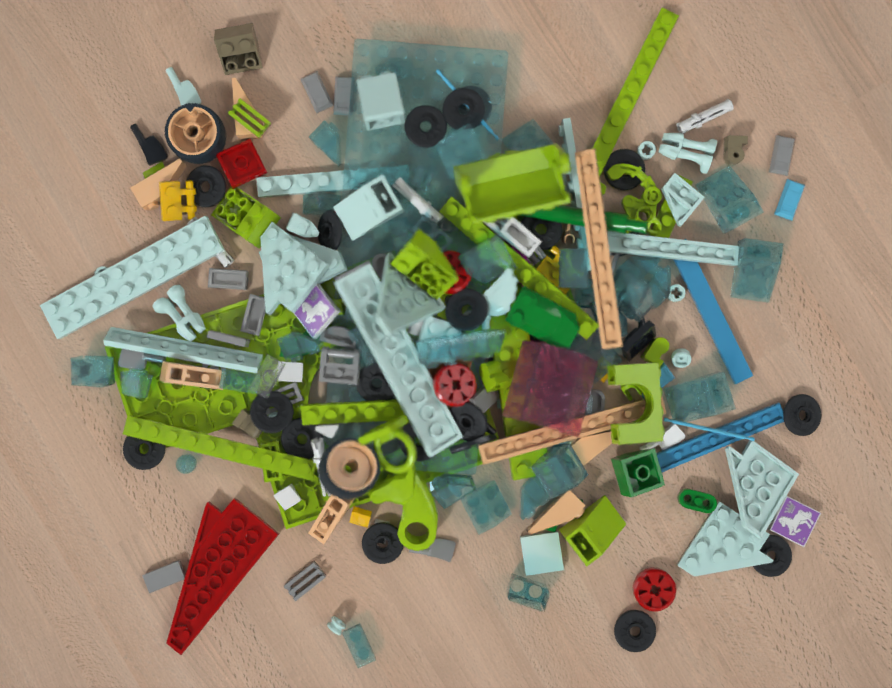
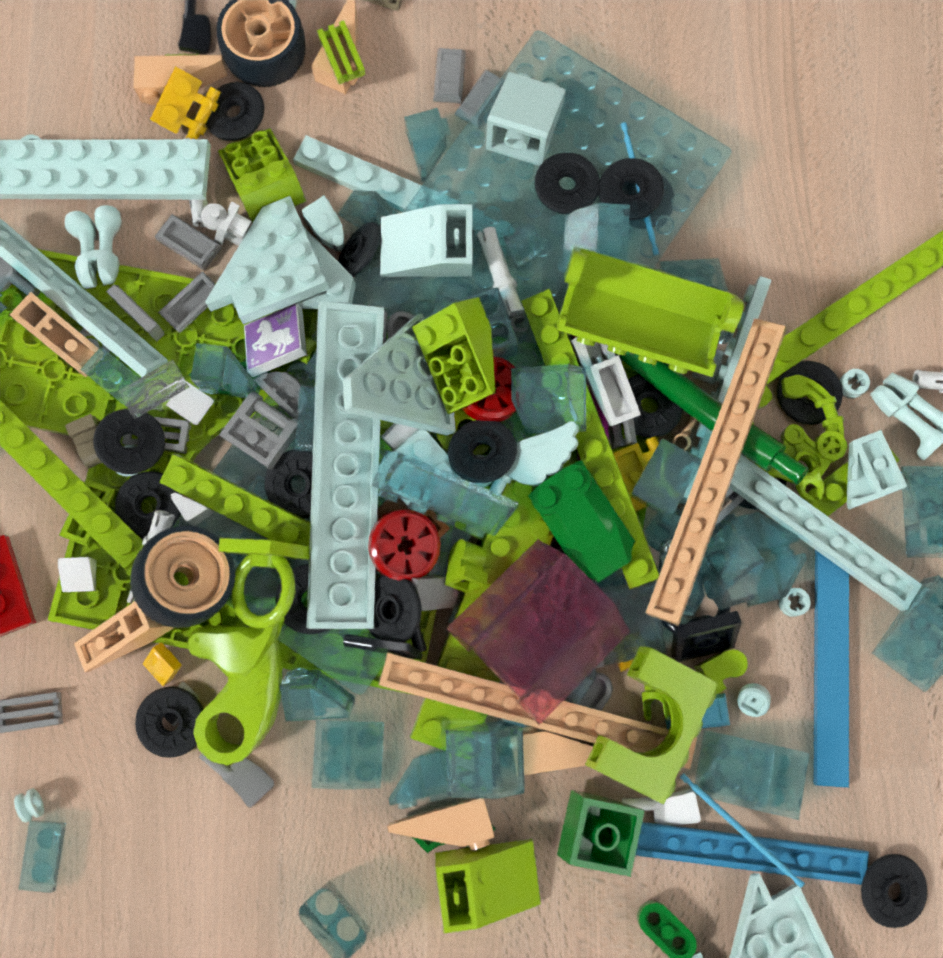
camera: 30 degrees right, 10 degrees down
(241, 163) = (297, 107): red plate -> none
(245, 258) = (228, 224): none -> white hips
(541, 553) = (390, 875): light aqua tile -> none

